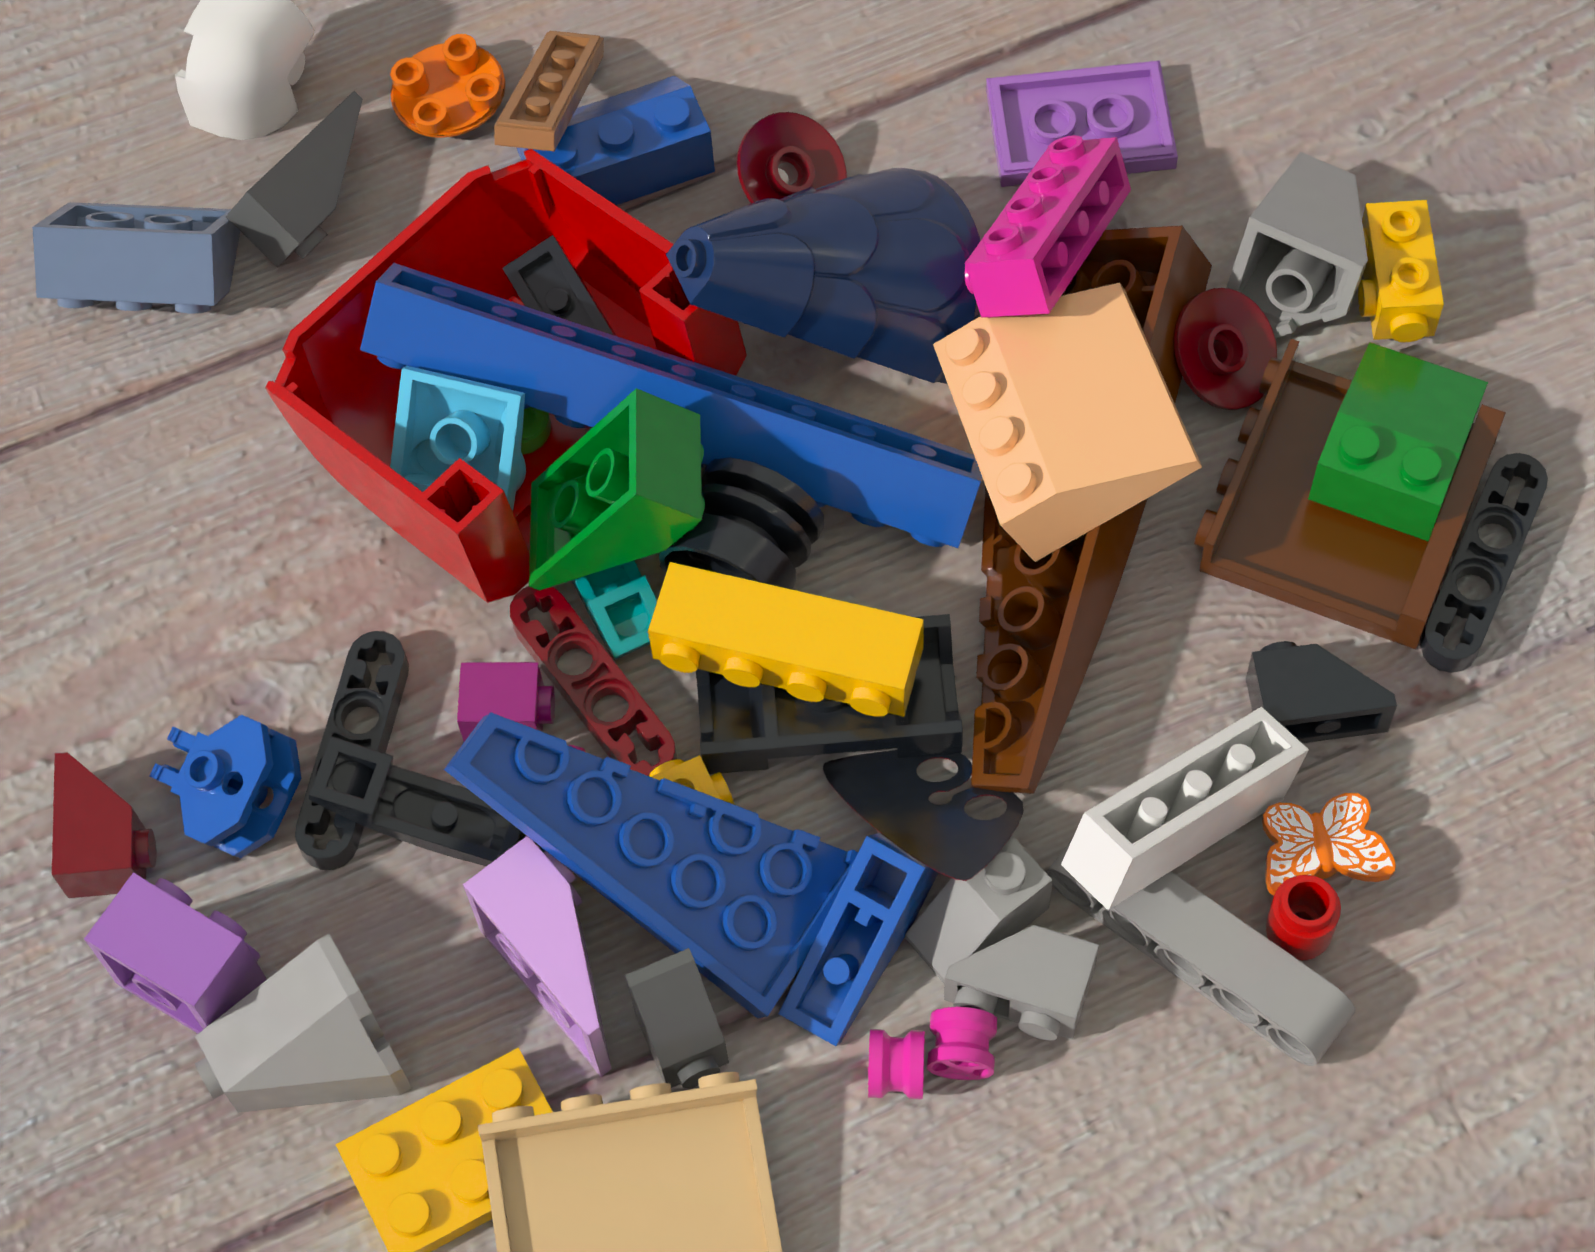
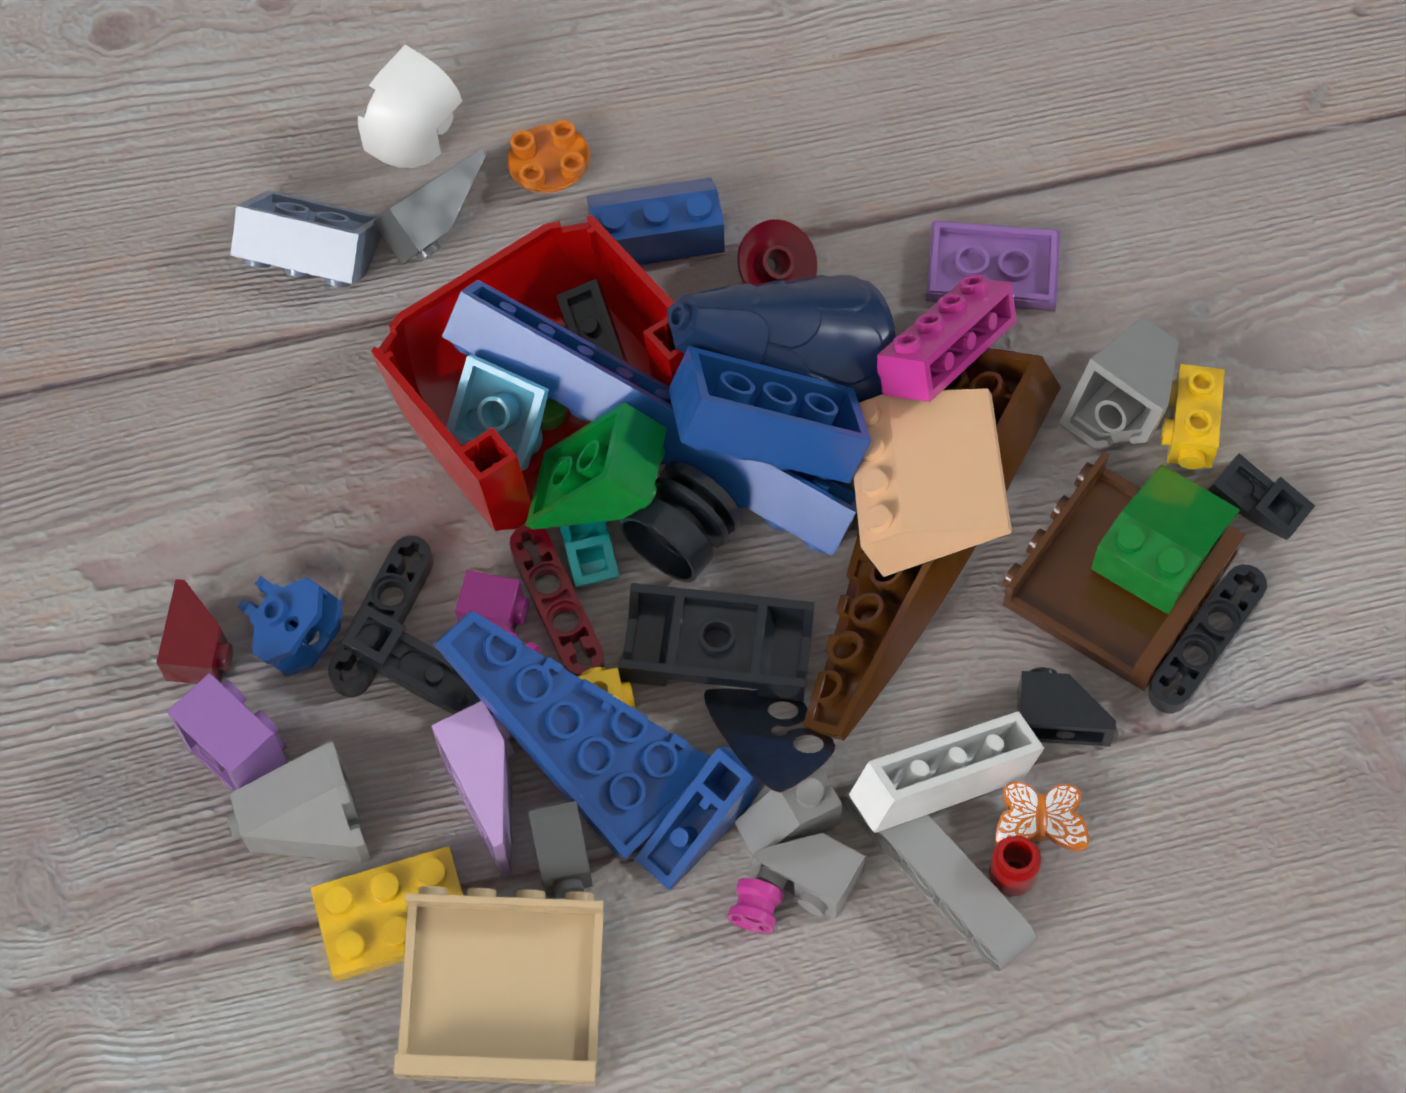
camera: 10 degrees right, 0 degrees up
(549, 91) = (617, 174): medium nougat tile -> none
(786, 640) = (694, 599): yellow brick -> none
(835, 372) = (768, 415): none -> blue brick
(896, 1064) = (706, 910): dark pink wheel -> none
(1242, 342) = (1070, 445): dark red dish -> none
(1517, 368) = (1266, 503): none -> black slope

